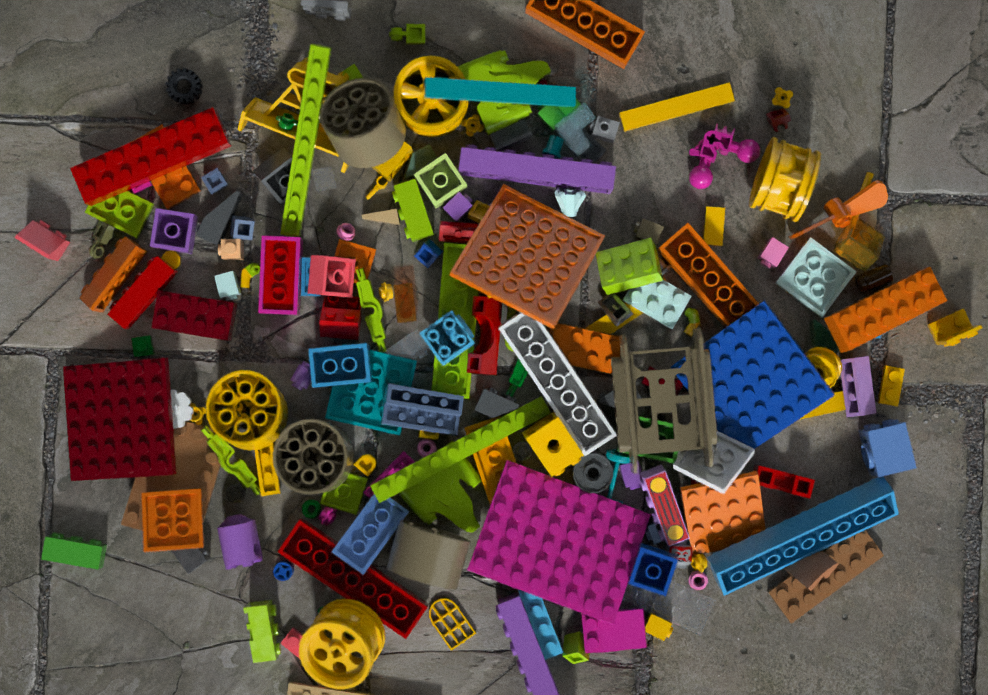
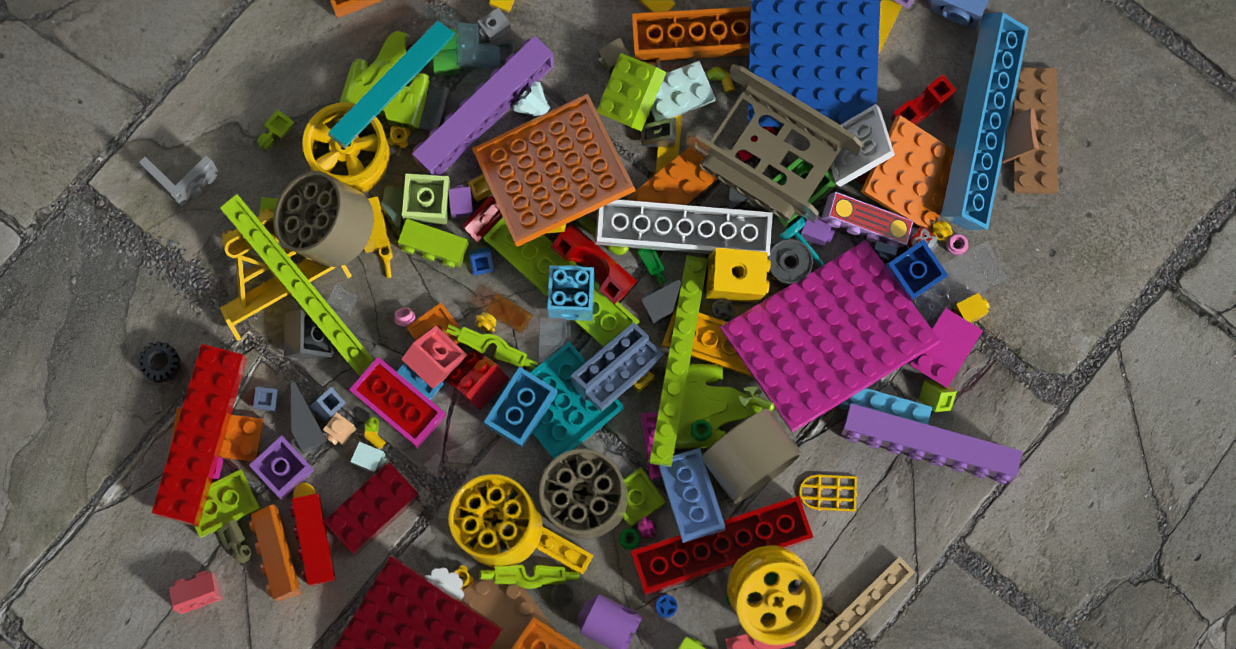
camera: 50 degrees left, 10 degrees down
(142, 346) = (361, 579): green plate -> none
(286, 121) = (266, 290): green plate -> none
(302, 376) = (503, 453): medium lavender brick -> none
(366, 464) = (627, 459): yellow tile -> none
(387, 216) = (418, 273): tan piece -> none
(422, 509) = (704, 424): none -> green plate
(426, 442) = (647, 393): bright pink plate -> none
(472, 525) = (755, 399): none -> lime bar
(553, 146) = (473, 80): teal bush -> none

